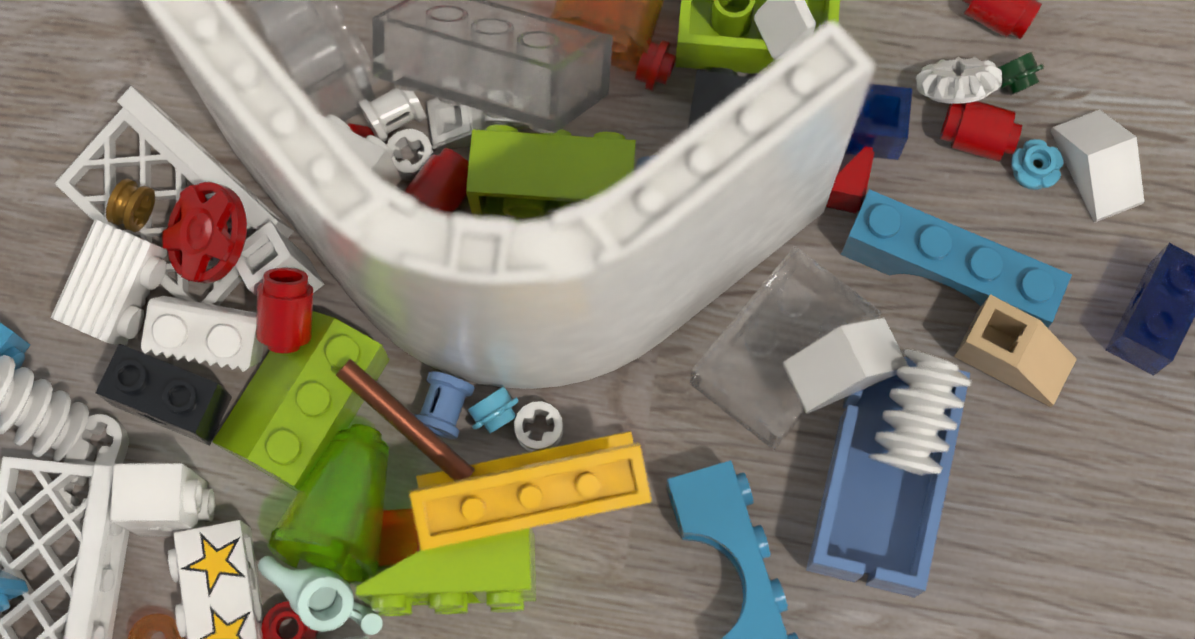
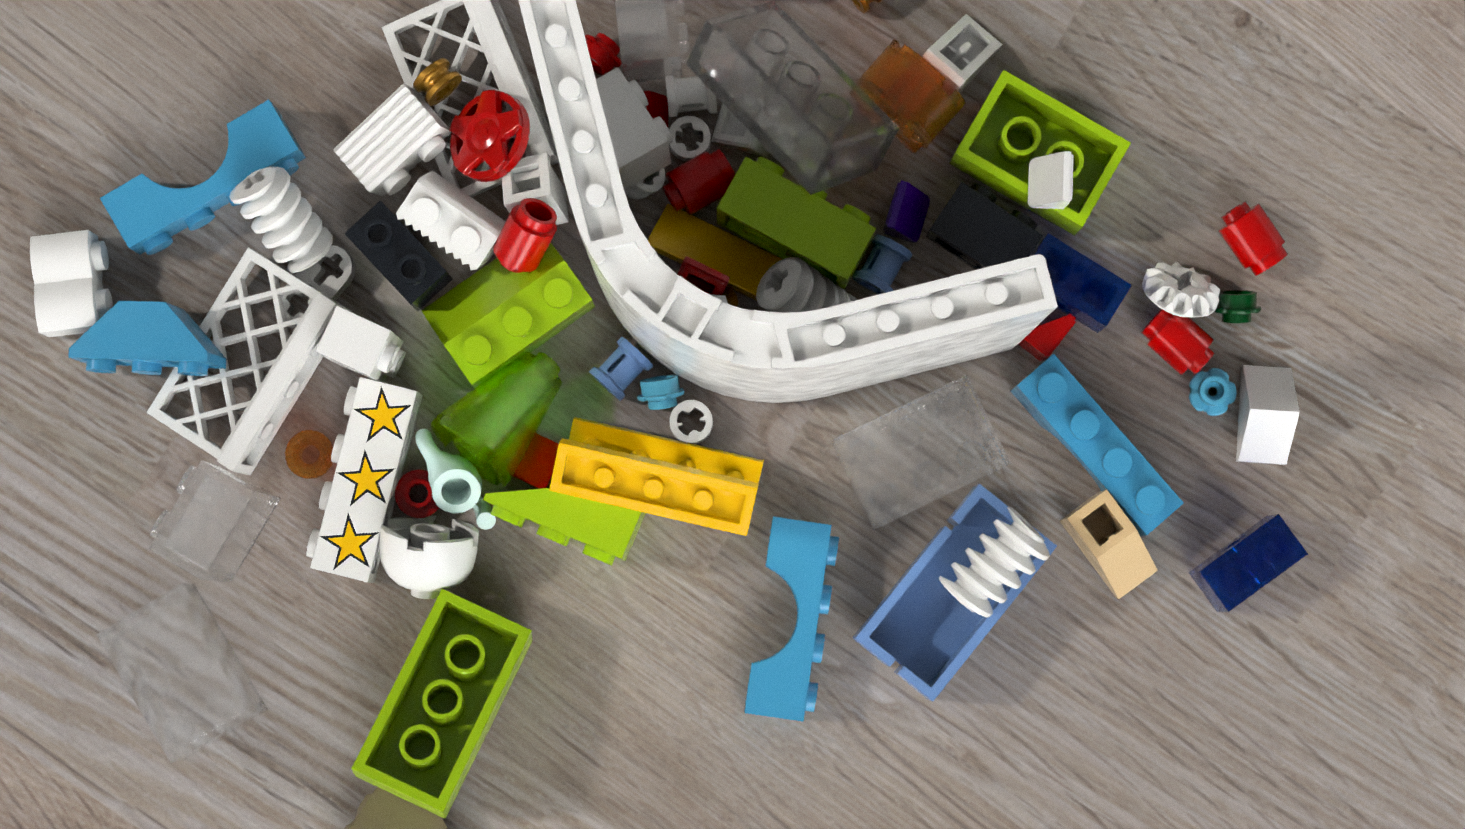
camera: 20 degrees right, 10 degrees up
(404, 421) = (583, 373): copper bar -> none
(654, 125) = (906, 212): none -> dark purple slope
(656, 65) = (932, 158): red plate -> none
(844, 363) = (958, 493): white slope -> none

